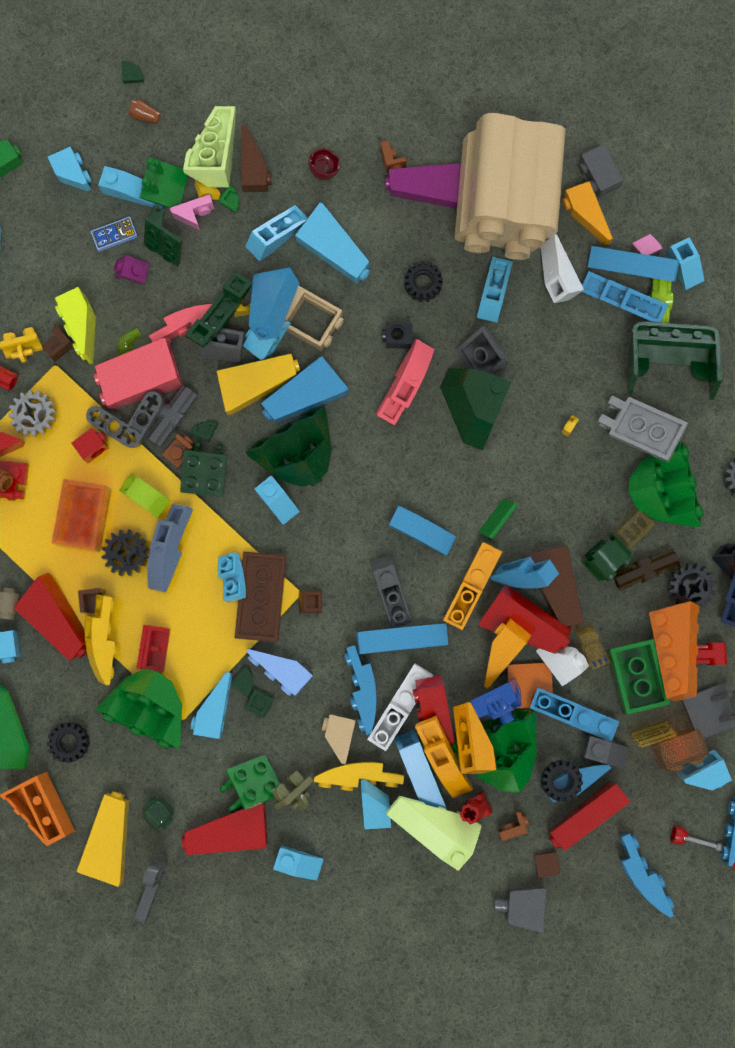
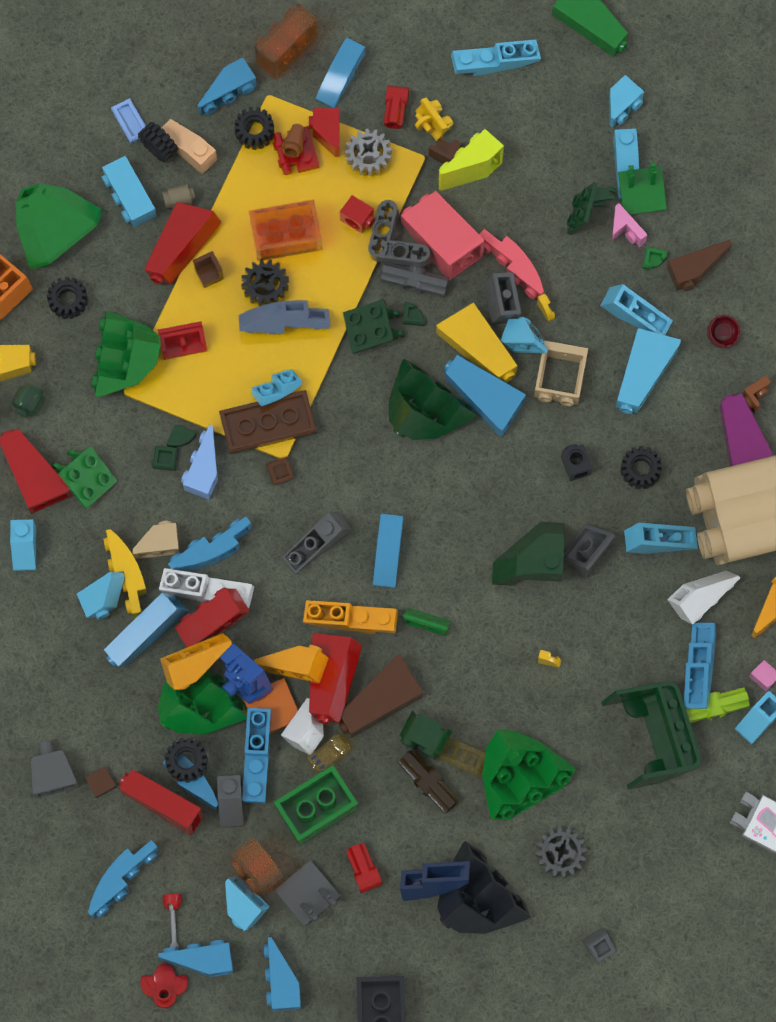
camera: 65 degrees right, 10 degrees down
(98, 647) = (165, 291): yellow slope -> none
(114, 234) = (575, 164): tile -> none
(126, 340) = (474, 212): clear neon green arm -> none
(131, 73) = (744, 122): dark green tile -> none
(131, 269) = (545, 192): magenta bracket -> none
(143, 112) = (709, 146): dark orange cone -> none
(144, 495) = (326, 280): lime brick -> none
(174, 452) = (391, 297): dark orange bracket -> none
(203, 190) = (654, 232): yellow tile -> none
(211, 715) = (141, 417): medium azure slope -> none
(213, 152) = (690, 225): yellowish green wedge -> none
(221, 311) = (531, 284): dark green slope -> none
(270, 301) = (558, 325): dark azure slope -> none
(277, 500) = (368, 404): medium azure slope -> none
(295, 795) = (83, 508): olive hips -> none
(402, 638) = (274, 568): dark azure slope -> none
(407, 382) = (531, 484): coral slope -> none
(437, 829) = (98, 663): yellowish green wedge -> none
(442, 757) = (168, 640): light orange slope -> none
(475, 809) = (131, 690): red piece -> none
(511, 830) = (122, 735): dark orange bracket -> none
(525, 573) = (378, 658): dark azure slope -> none
(633, 263) = (738, 663): dark azure slope -> none
(644, 427) = (571, 729): light grey tile -> none
(653, 733) = (264, 838): clear yellow piece -> none
(677, 649) = (356, 830): orange wedge -> none
(697, 579) = (428, 822): black gear -> none

